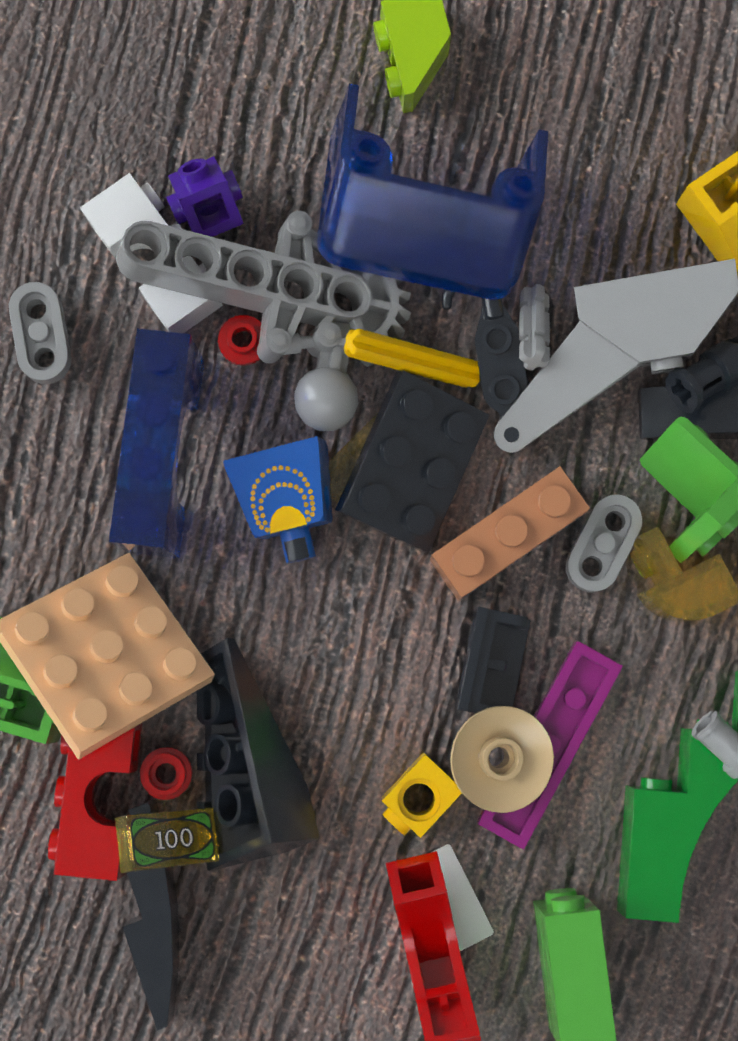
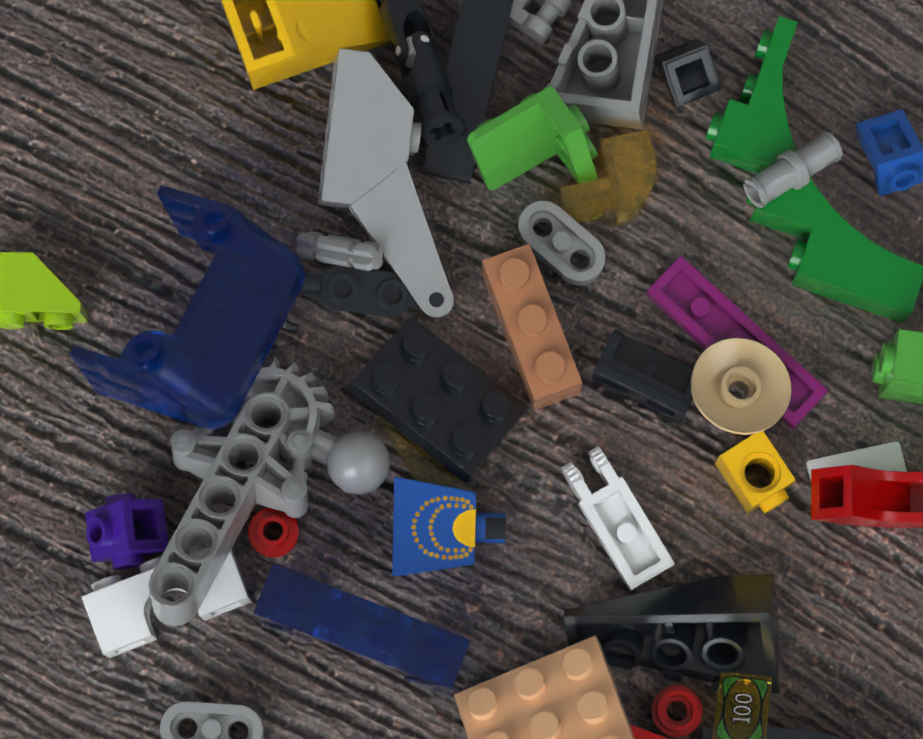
camera: 75 degrees left, 5 degrees down
(335, 672) = (619, 523): none -> white hinge
(411, 358) = (340, 371): yellow axle -> none

